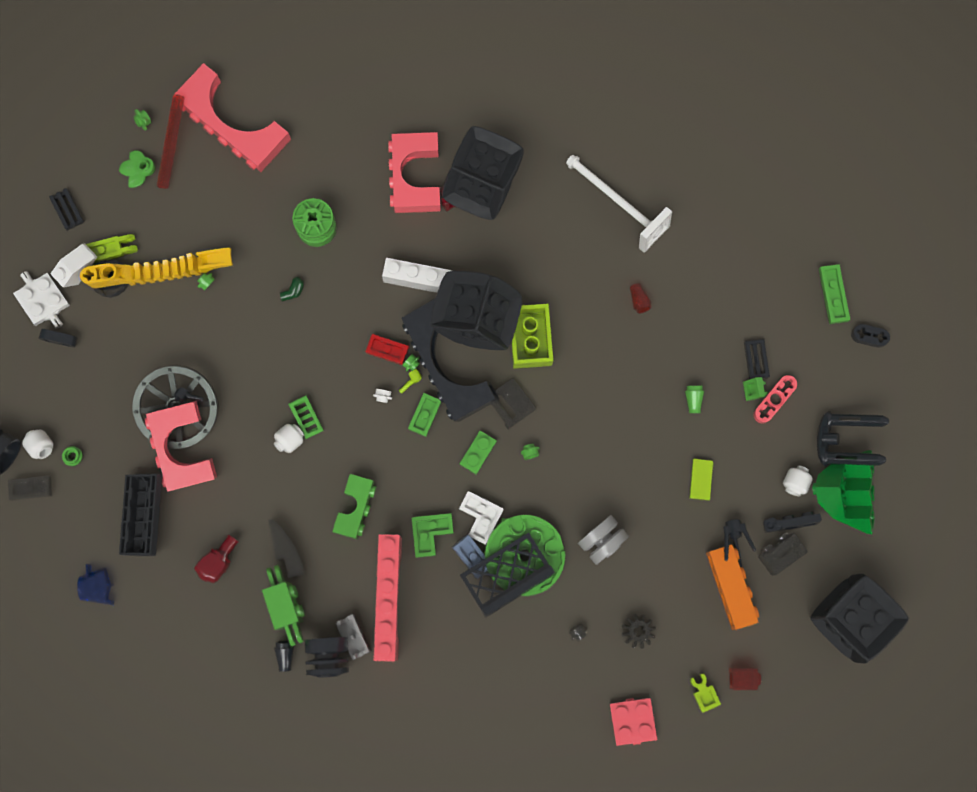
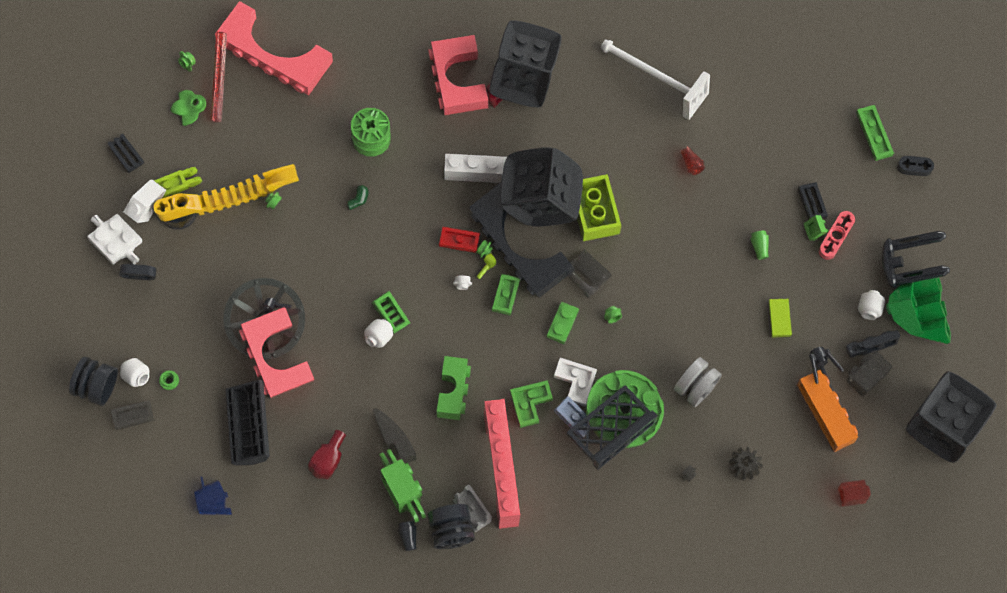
camera: 10 degrees left, 10 degrees down
(633, 721) = (755, 548): coral plate -> none
(705, 696) = (819, 515): lime plate -> none

